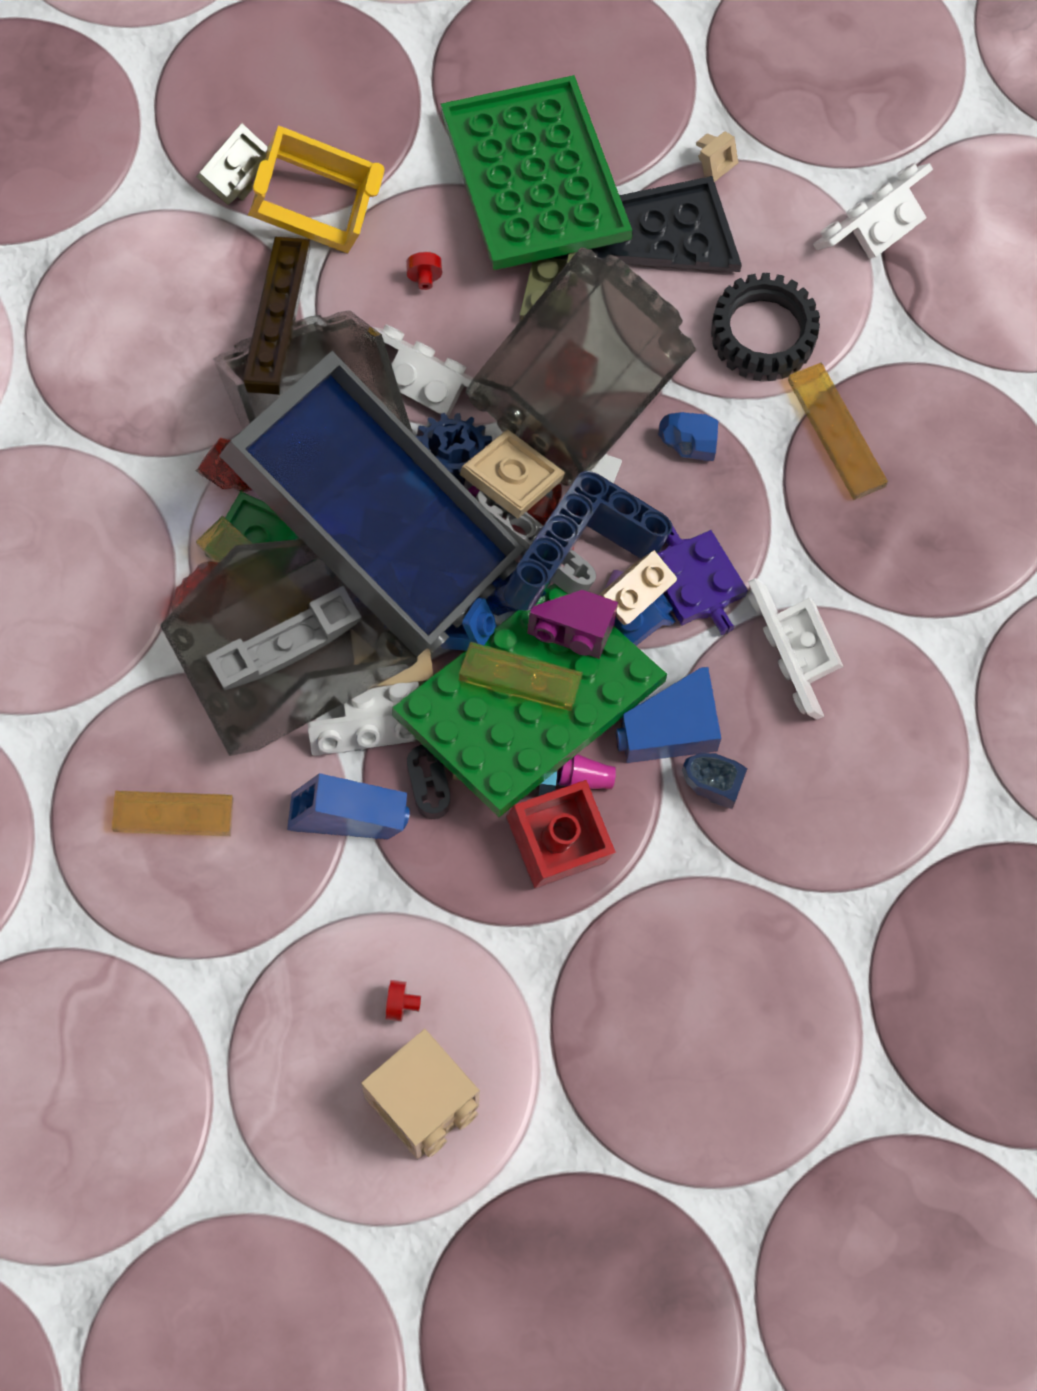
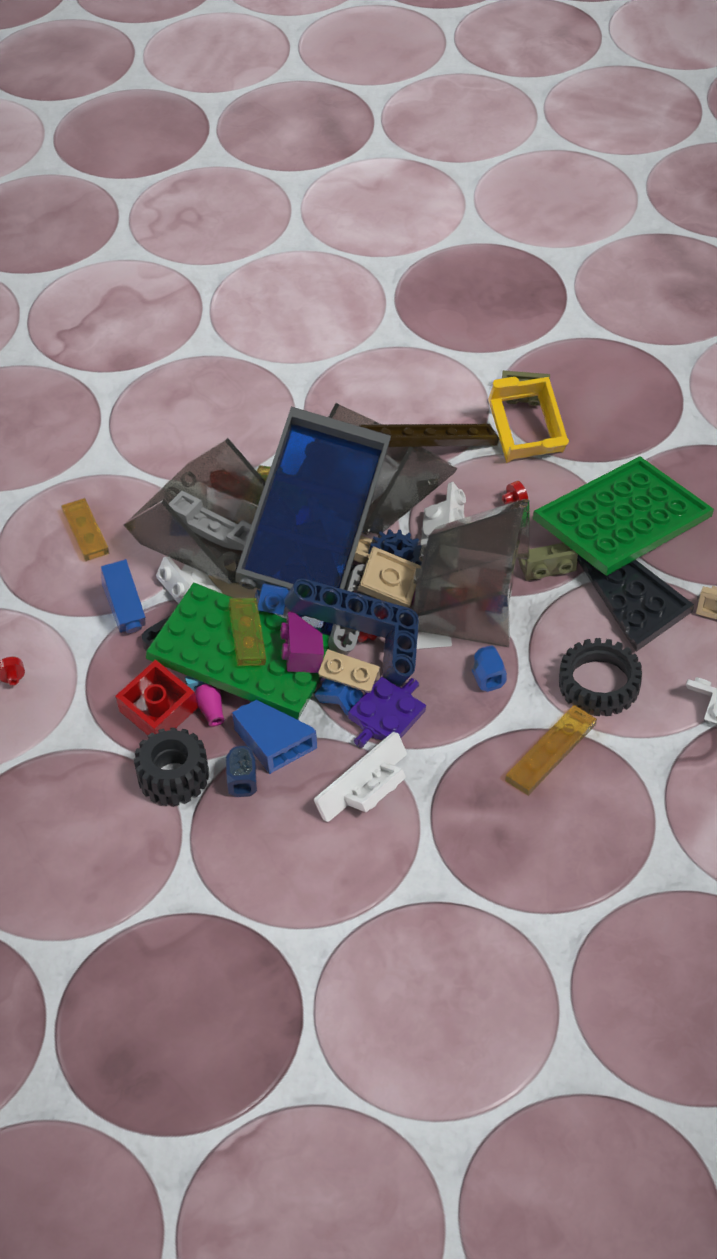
camera: 70 degrees right, 20 degrees down
(679, 827) = (177, 783): none -> black tyre

